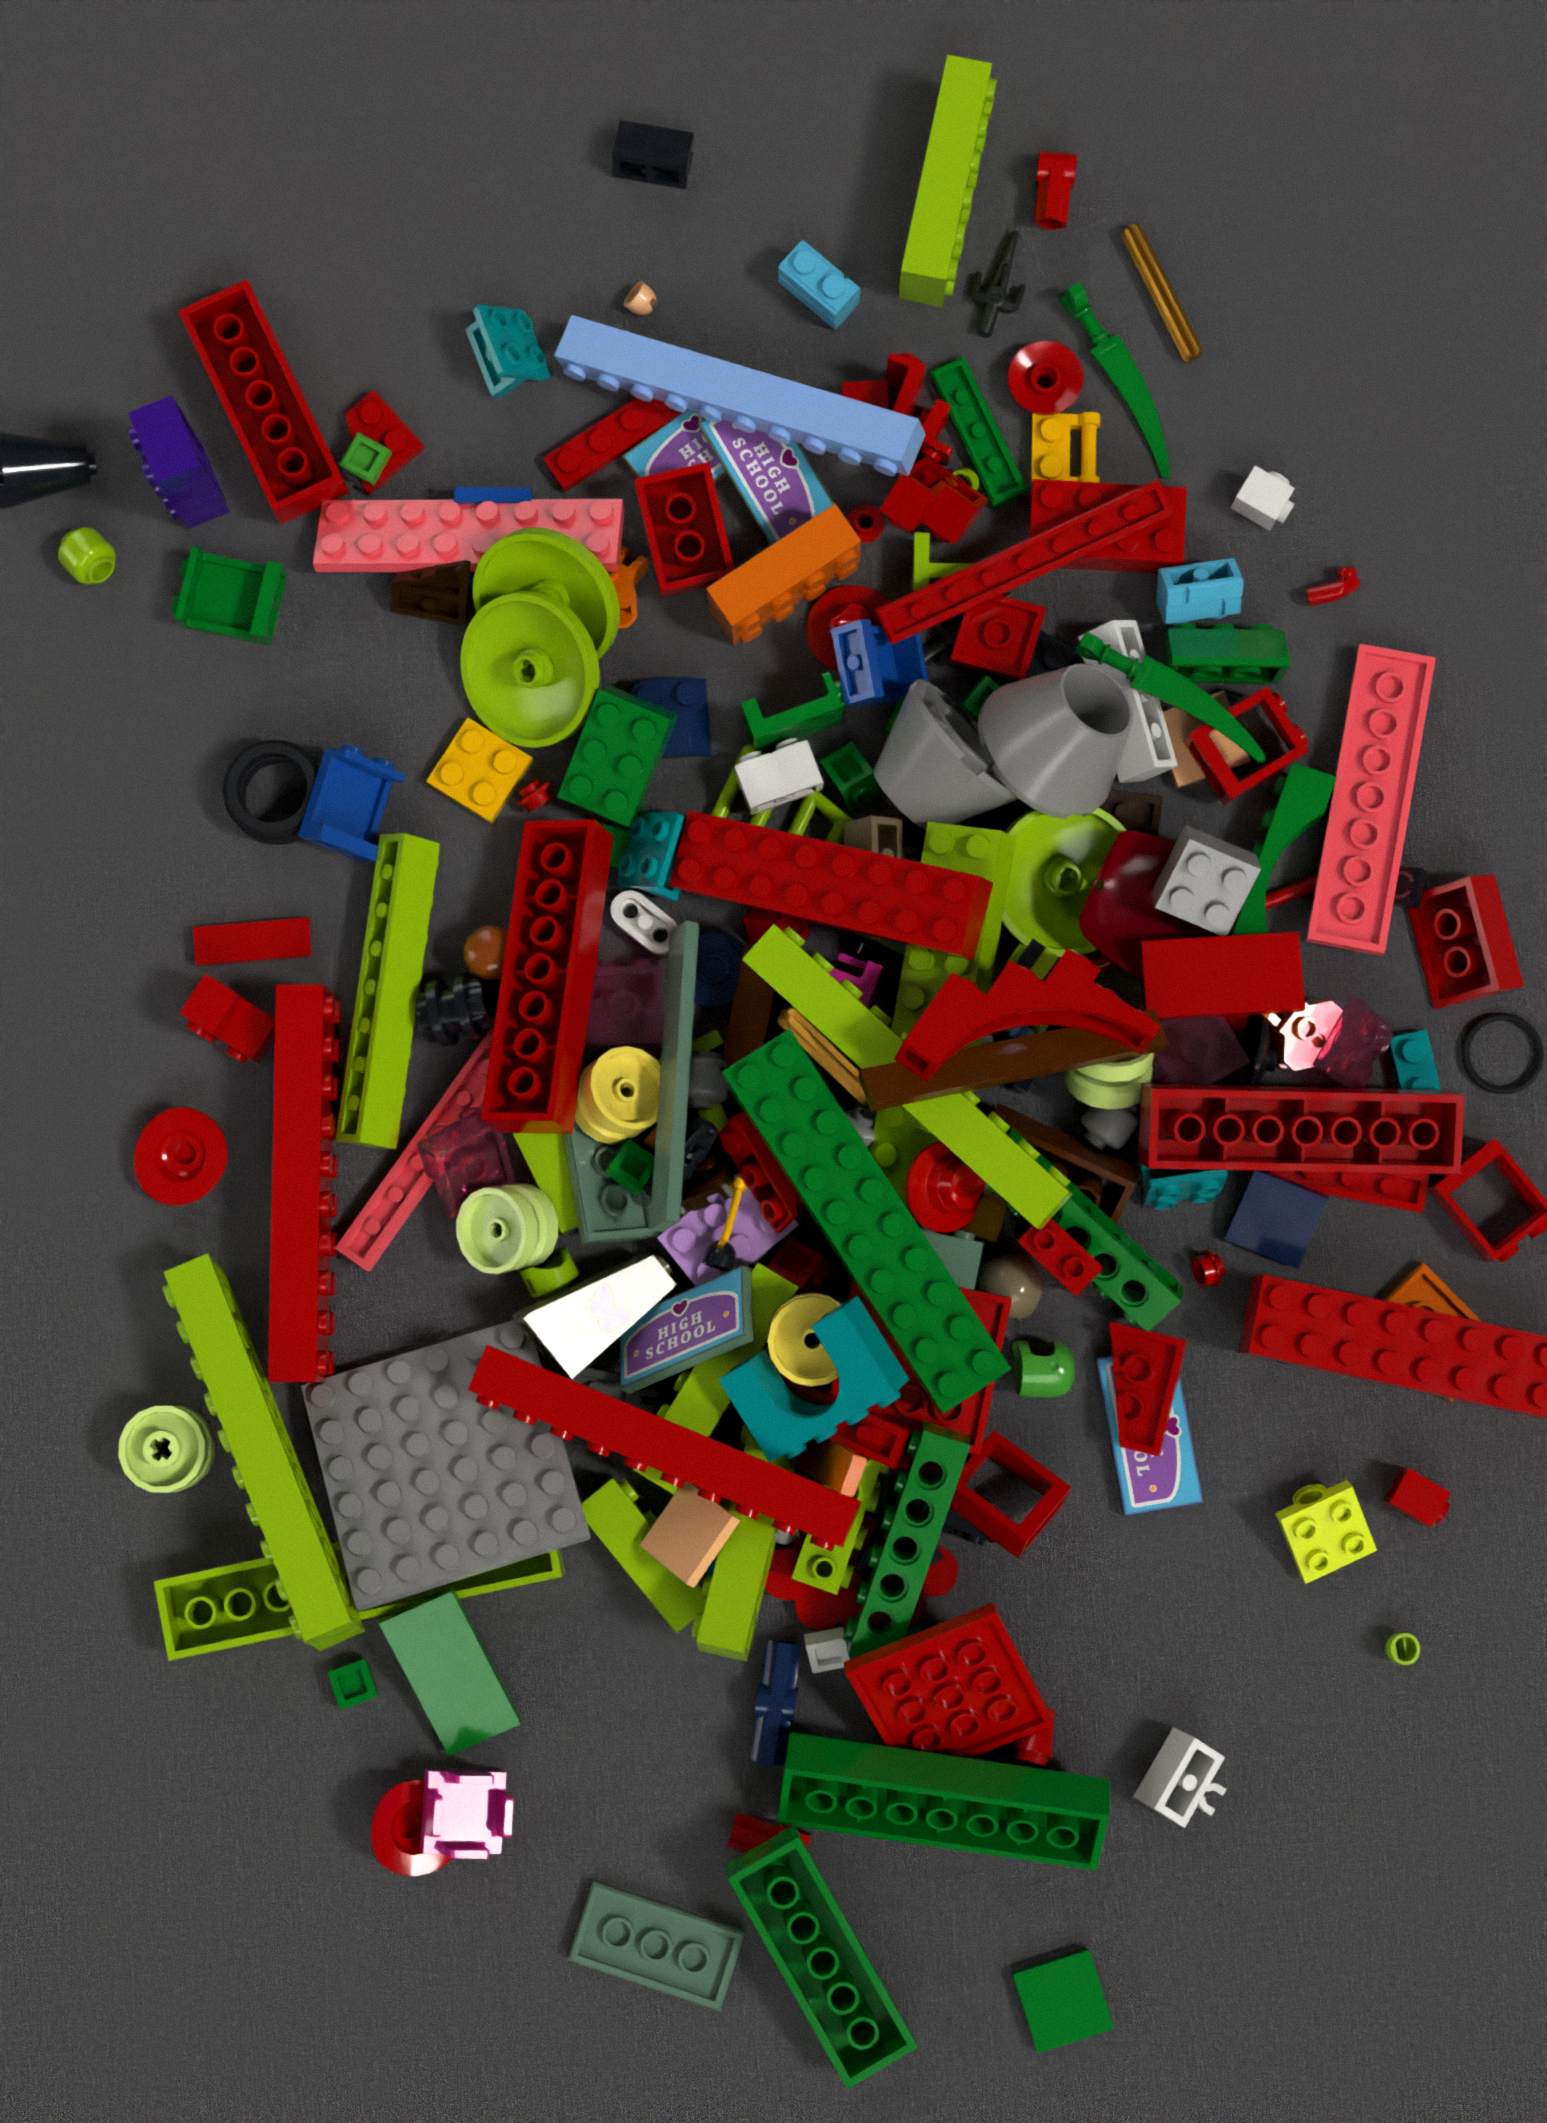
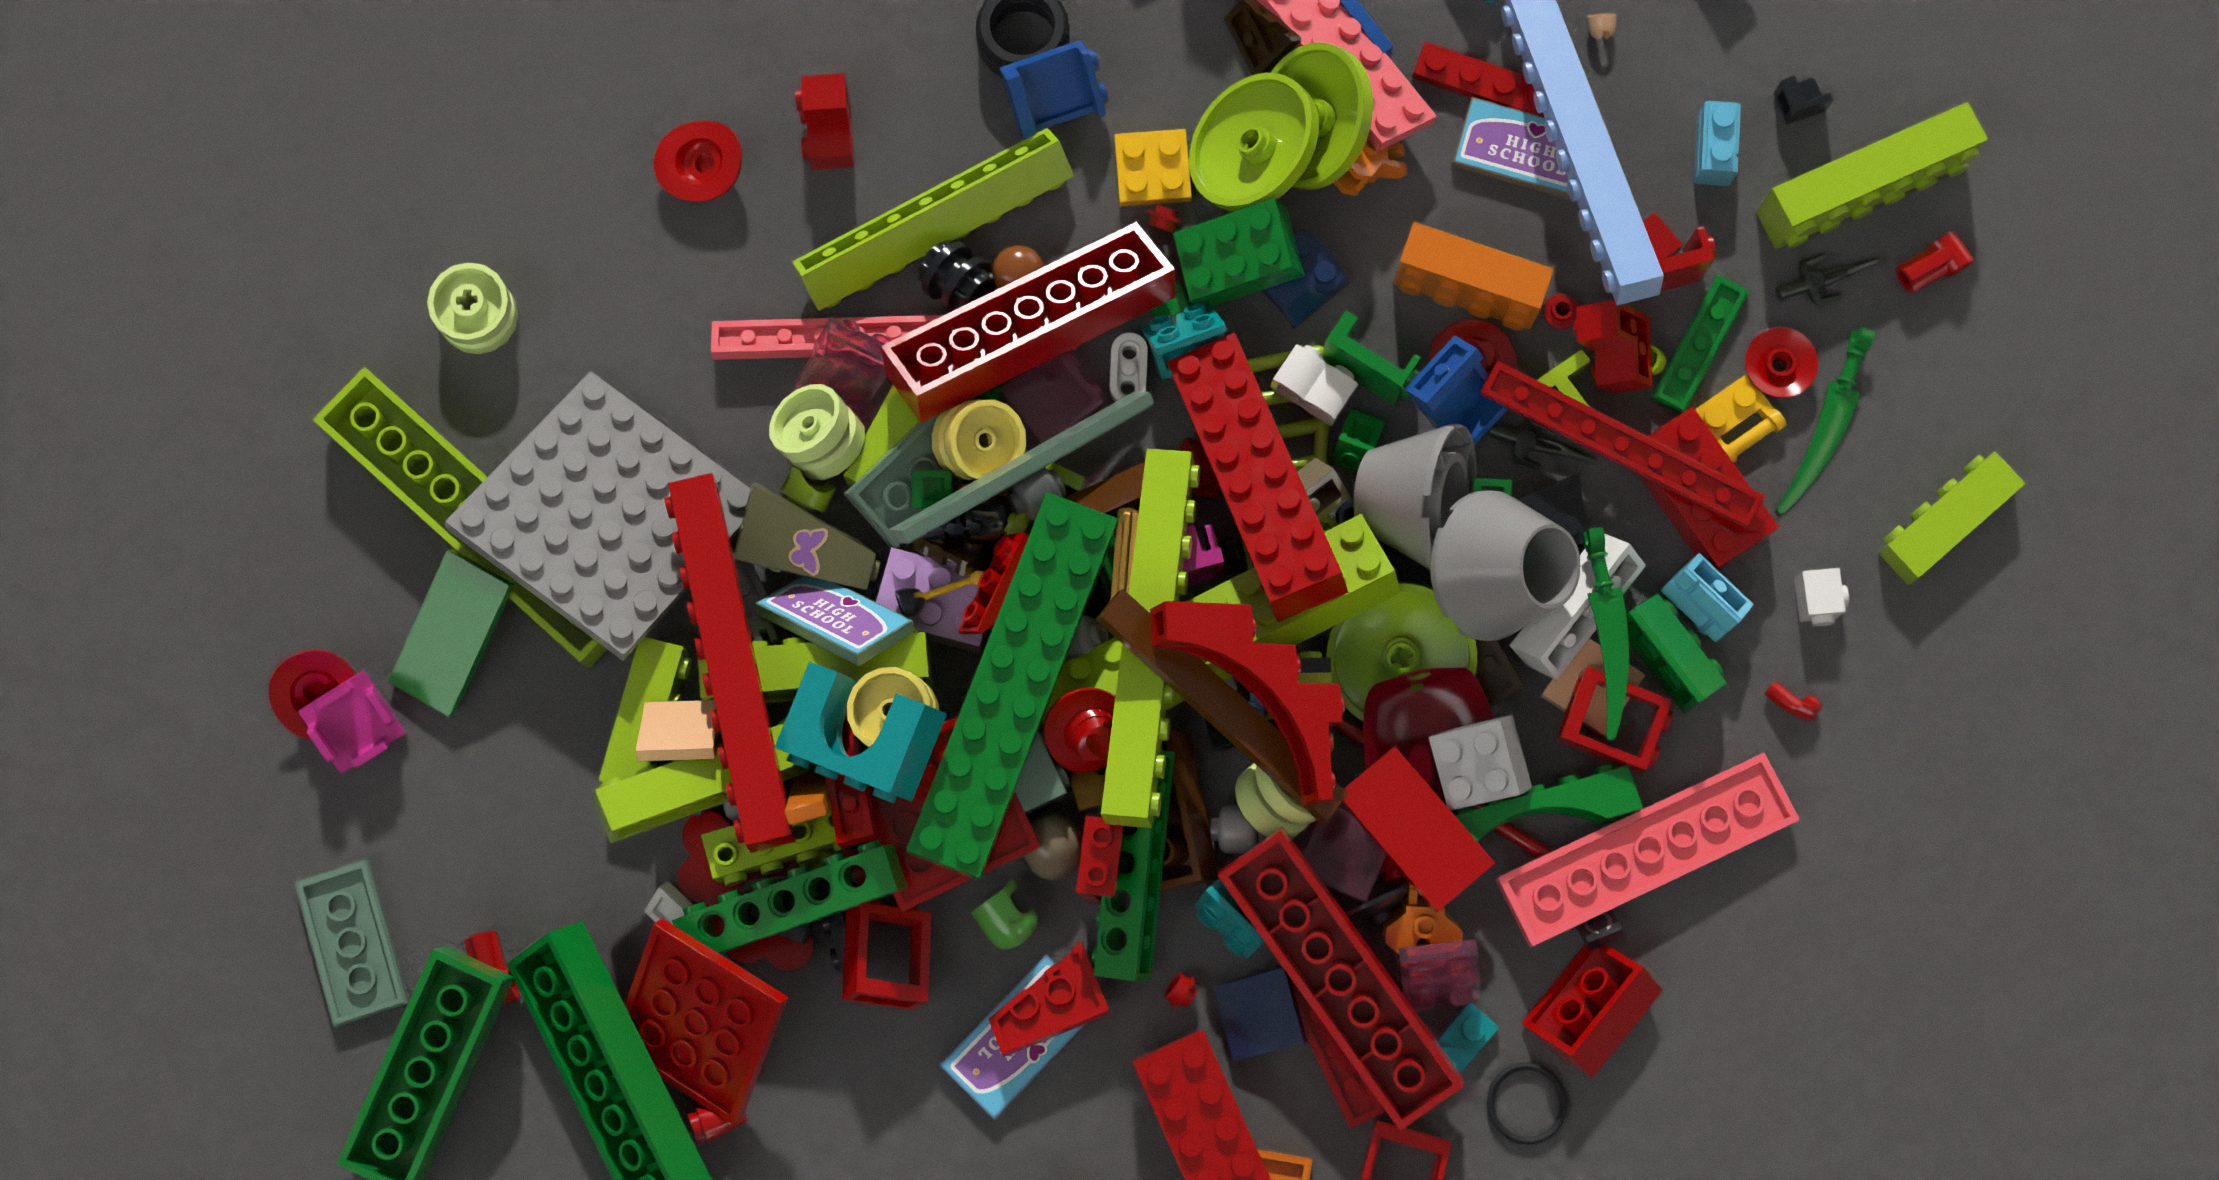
camera: 50 degrees right, 5 degrees down
(252, 942) = (899, 99): red tile -> none
(263, 1454) = (513, 373): lime brick -> none
(303, 1184) = (740, 261): red brick -> none
(353, 1683) = (393, 571): green plate -> none
(684, 529) = (1449, 176): red brick -> none
(717, 969) = (1128, 442): dark blue tile -> none
(769, 478) = (1540, 213): tile -> none
(775, 1702) = (603, 896): dark blue piece -> none
(803, 1267) = (950, 677): red bracket -> none
(830, 186) = (1801, 99): none -> black panel
(933, 422) = (1675, 304): red bracket -> none
(999, 637) = (1551, 471): red plate -> none
(1162, 292) = (1919, 403): pearl gold axle -> none
(1277, 342) = (1951, 517): none -> lime brick

